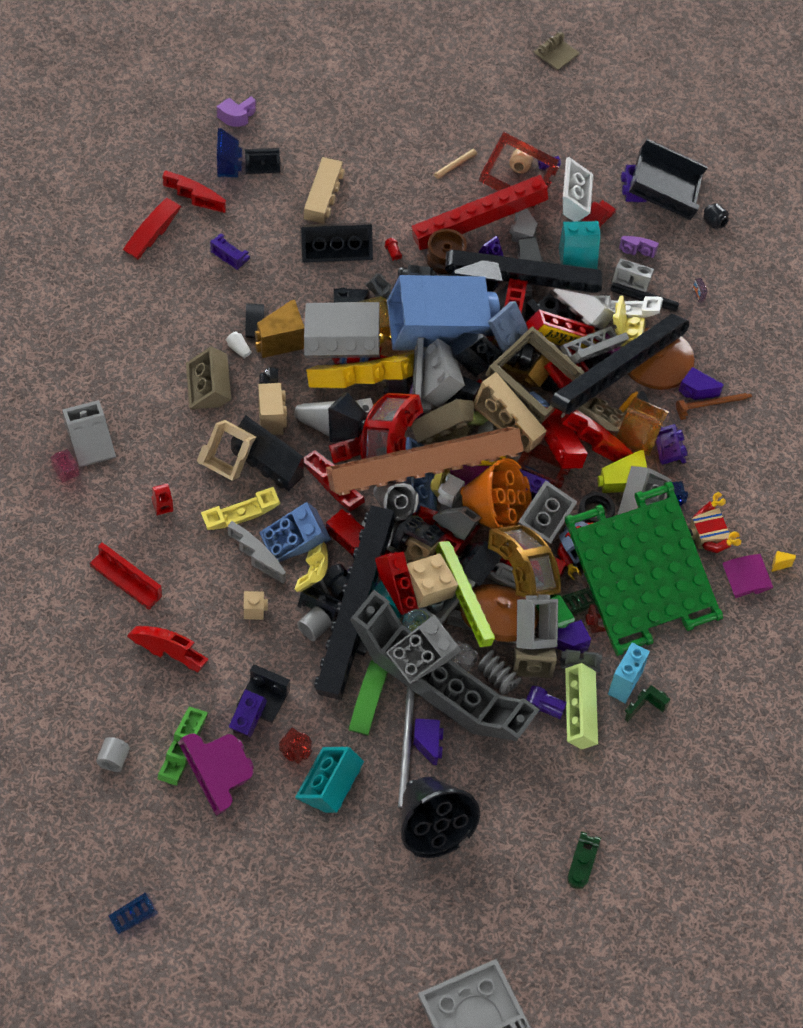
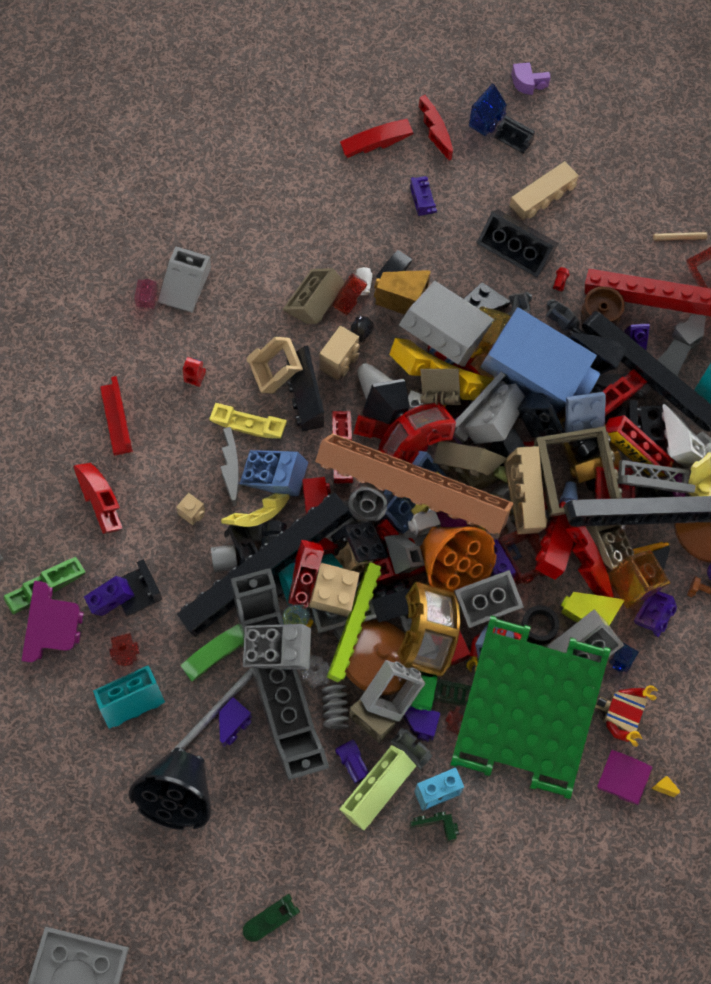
camera: 40 degrees right, 10 degrees up
(236, 360) = (349, 293): none -> clear red slope
(379, 379) = (440, 386): none -> dark tan hinge

